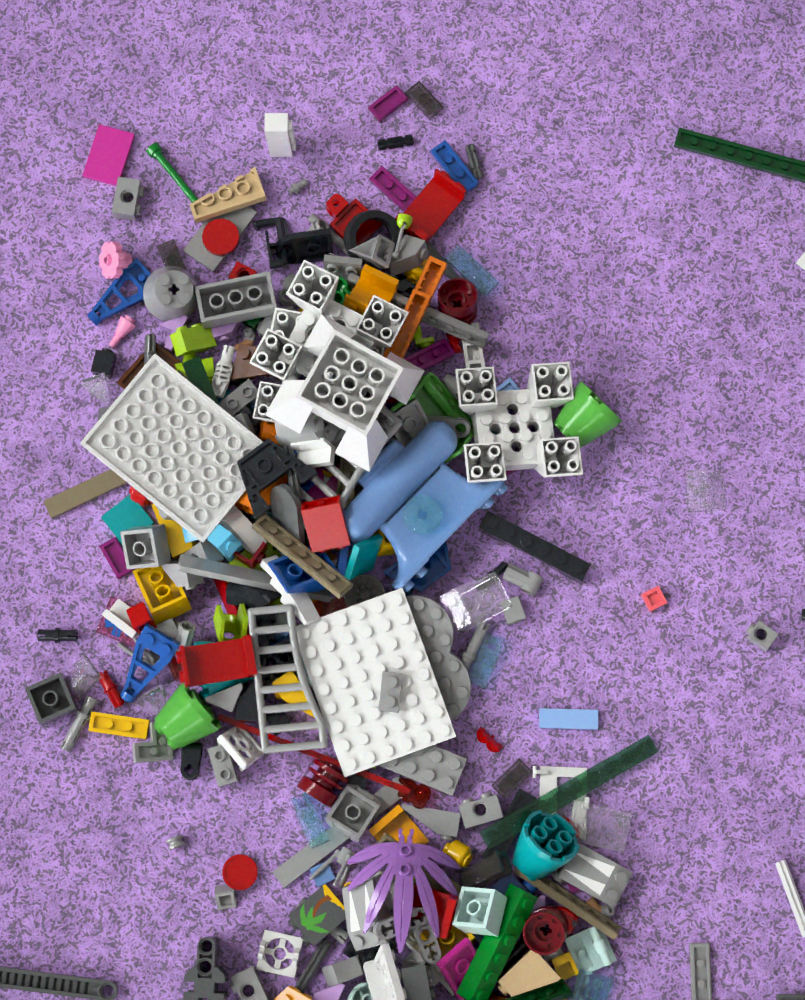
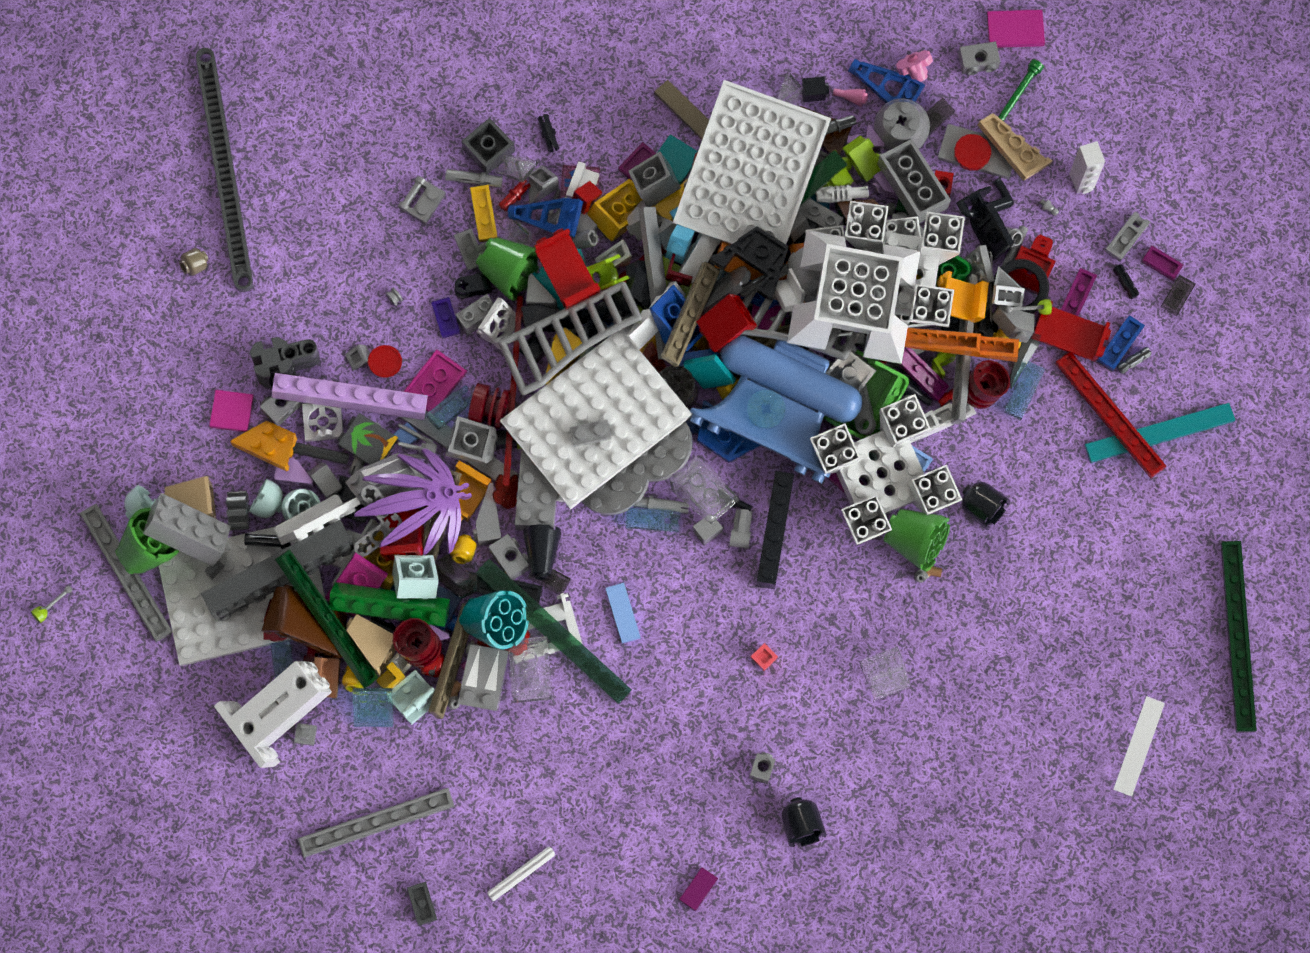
camera: 65 degrees right, 5 degrees down
(88, 778) = (427, 202): none -> light grey plate
(108, 658) = (542, 184): none -> light grey slope
(207, 608) = (619, 248): none -> white slope
(215, 797) = (445, 317): none -> dark purple plate
(269, 919) = (349, 396): none -> lavender brick
(277, 829) = (436, 379): none -> dark pink tile
(352, 125) = (1127, 237): none -> light grey plate
(442, 370) = (913, 389): none -> black cone
(486, 777) = (541, 549): none -> black cone
(491, 744) = (577, 547): red piece -> none
(521, 201) = (1110, 415): none -> red tile
(551, 164) = (1164, 431): none -> teal tile
(571, 344) = (984, 503): none -> black cylinder
(620, 411) = (921, 575): none -> arm

